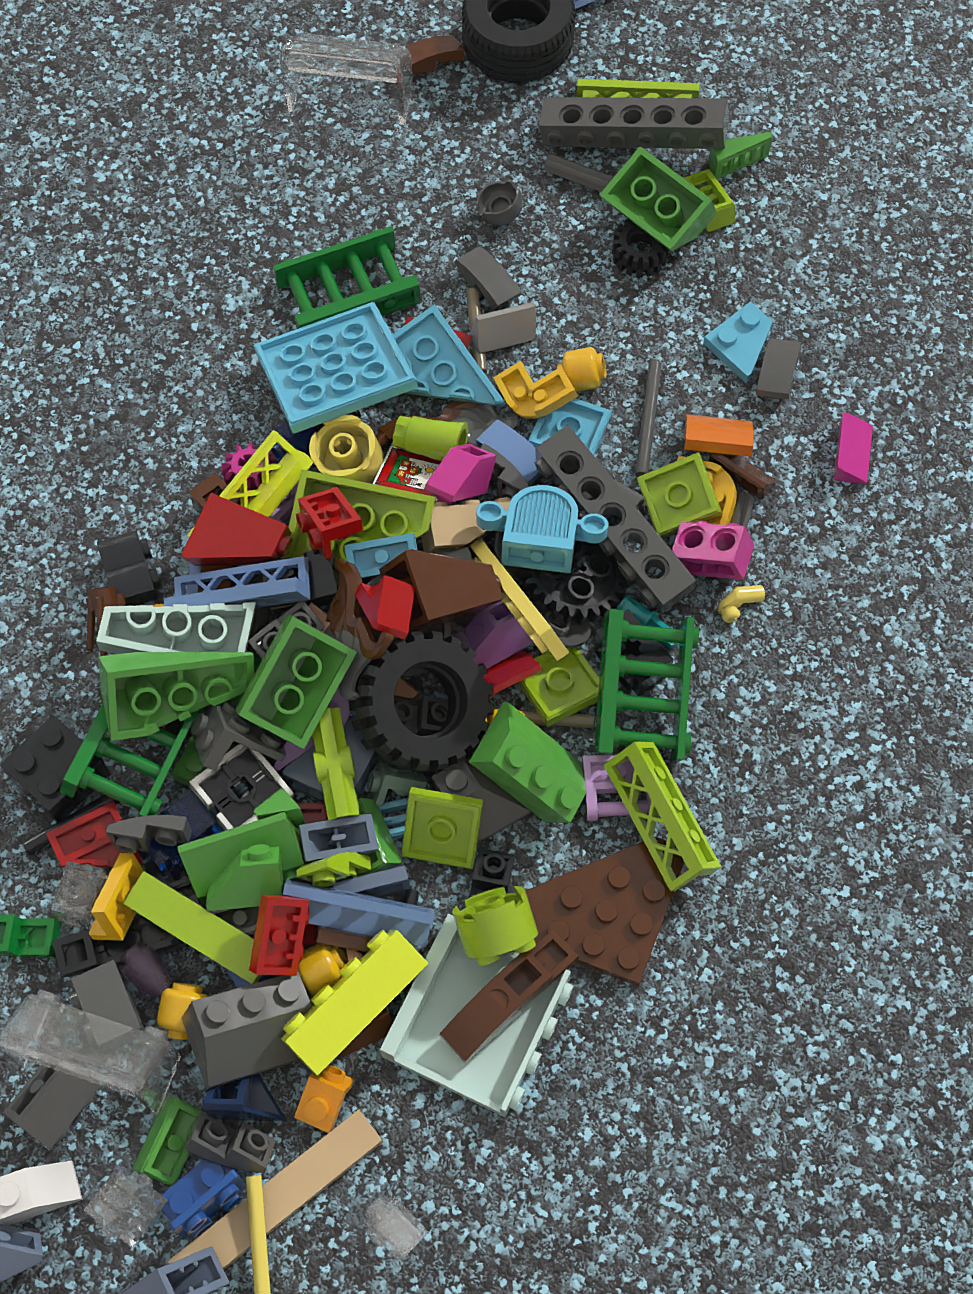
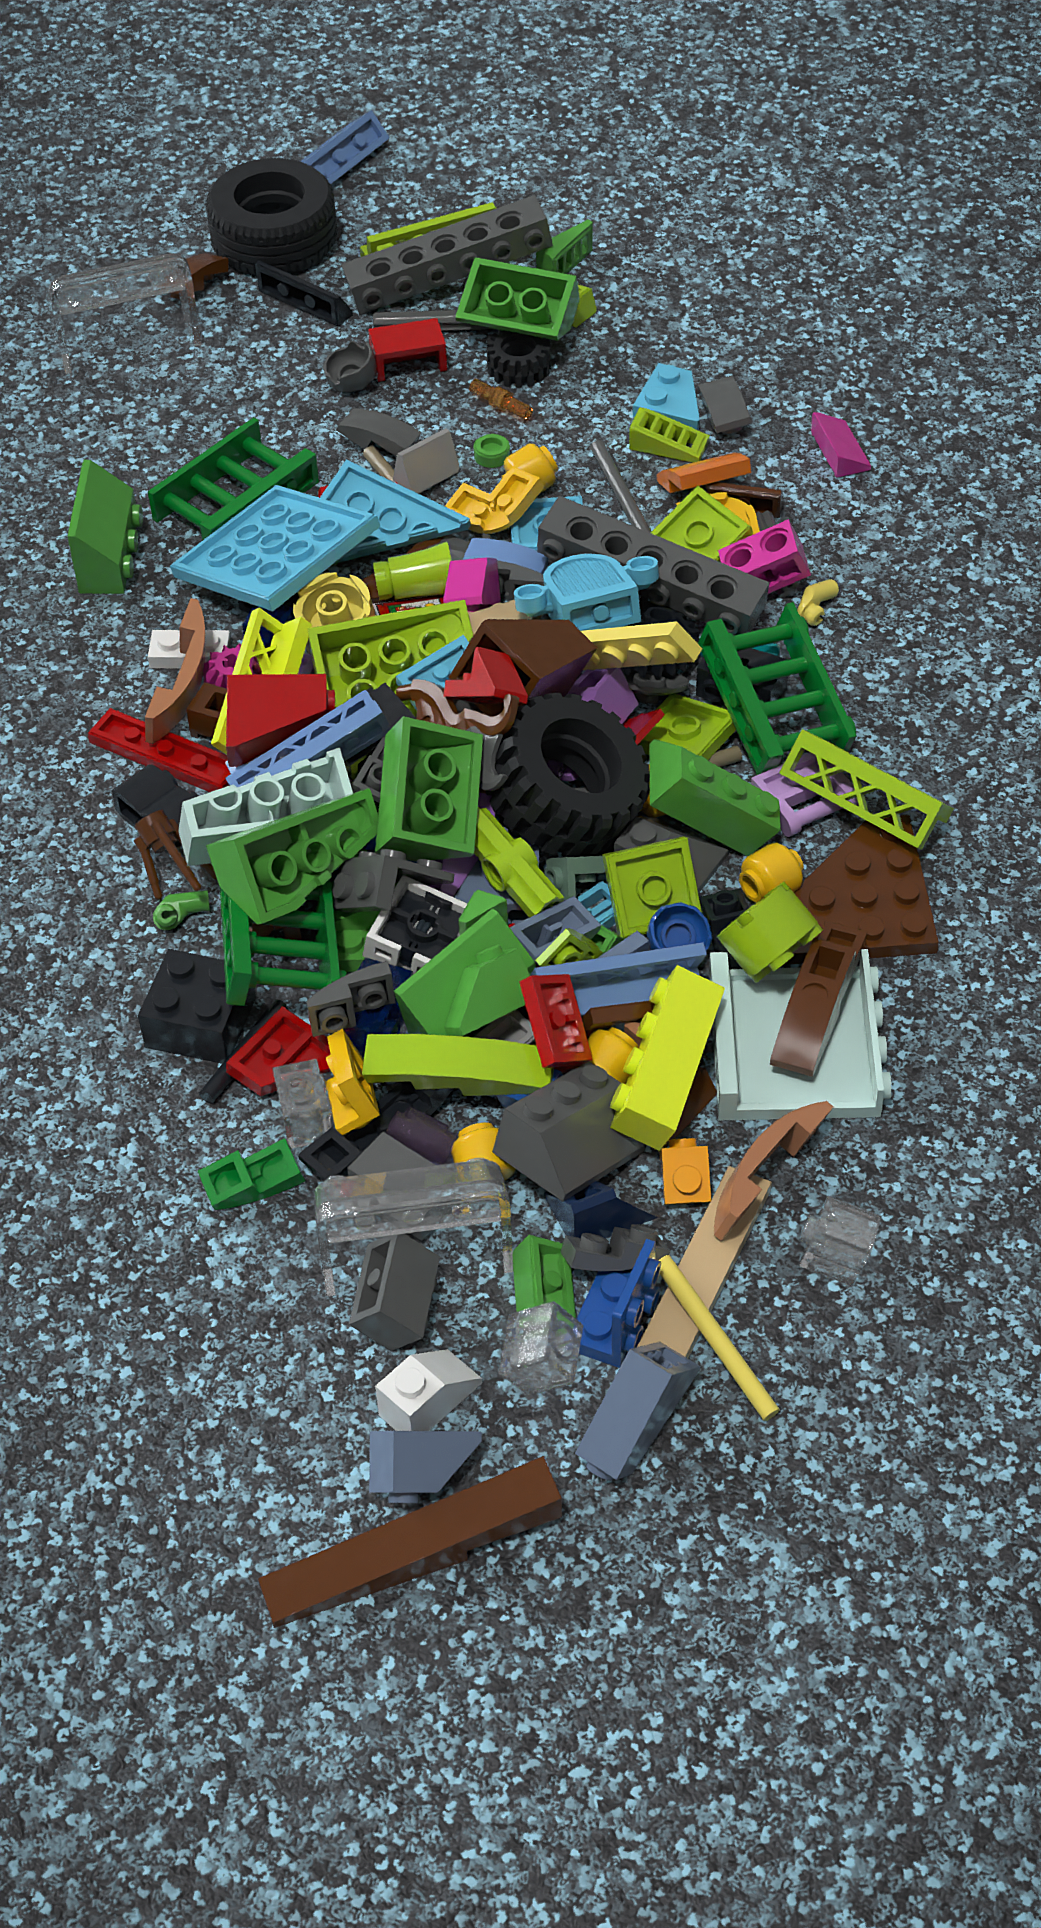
camera: 25 degrees left, 15 degrees down
(86, 669) = (177, 906): none -> bright green arm
(158, 508) = (173, 753): none -> red tile
(175, 485) = (169, 705): none -> nougat slope
(220, 287) = (103, 531): none -> bright green slope
(233, 424) = (165, 647): none -> white plate
(327, 518) = (365, 655): red bracket -> none
(336, 1151) = (791, 1134): none -> nougat slope
(439, 880) = (678, 926): none -> blue hair
(505, 110) = (302, 294): none -> black slope
(544, 857) = (768, 869): none -> yellow head
(555, 197) = (406, 343): none -> red panel
(569, 331) = (491, 450): none -> bright green tile
(604, 283) = (501, 399): none -> clear orange bar
(721, 373) = (656, 436): none -> lime slope

